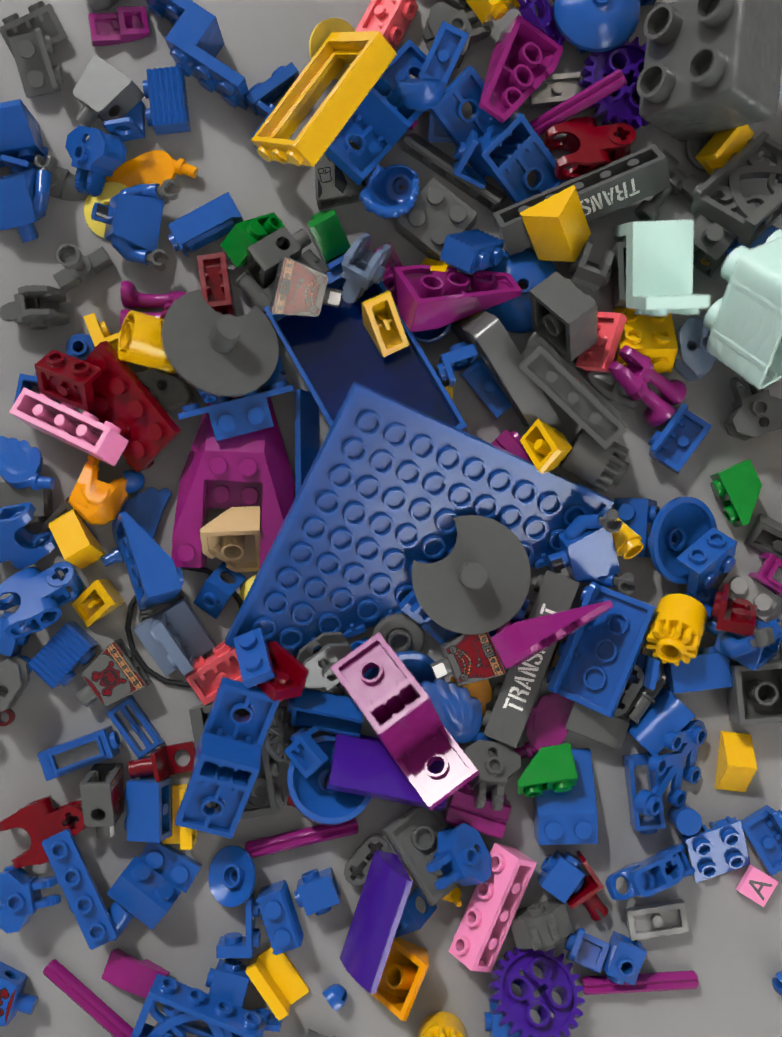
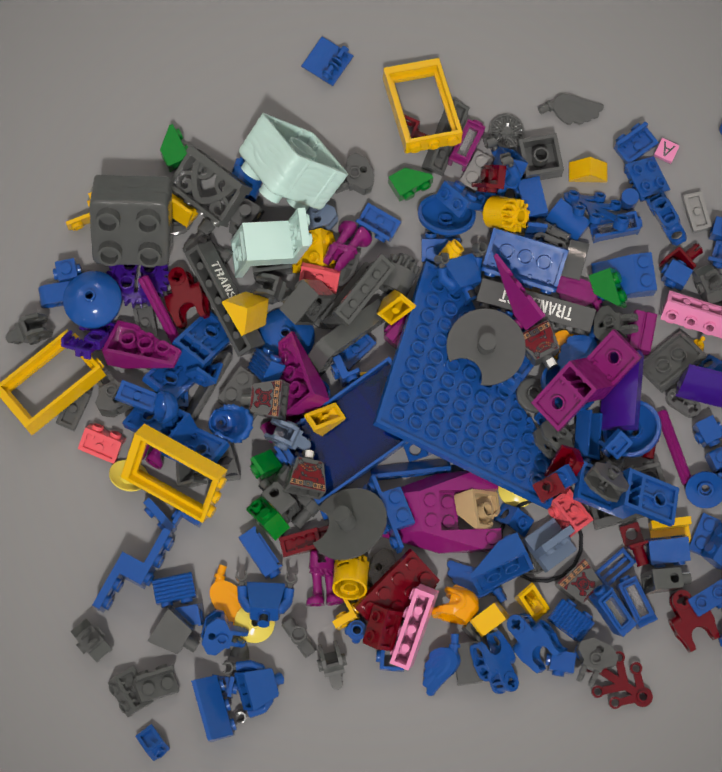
camera: 100 degrees left, 10 degrees down
(66, 716) = (612, 610): none -> blue window
(125, 26) = (120, 631): magenta slope -> none
(135, 481) = (442, 584): blue hinge -> none
(242, 642) = (548, 487): none -> dark red bracket
(243, 734) = (606, 481): none -> dark grey hinge
(417, 242) = (268, 399): none -> dark grey torso
(459, 858) = (672, 339): blue hinge -> none

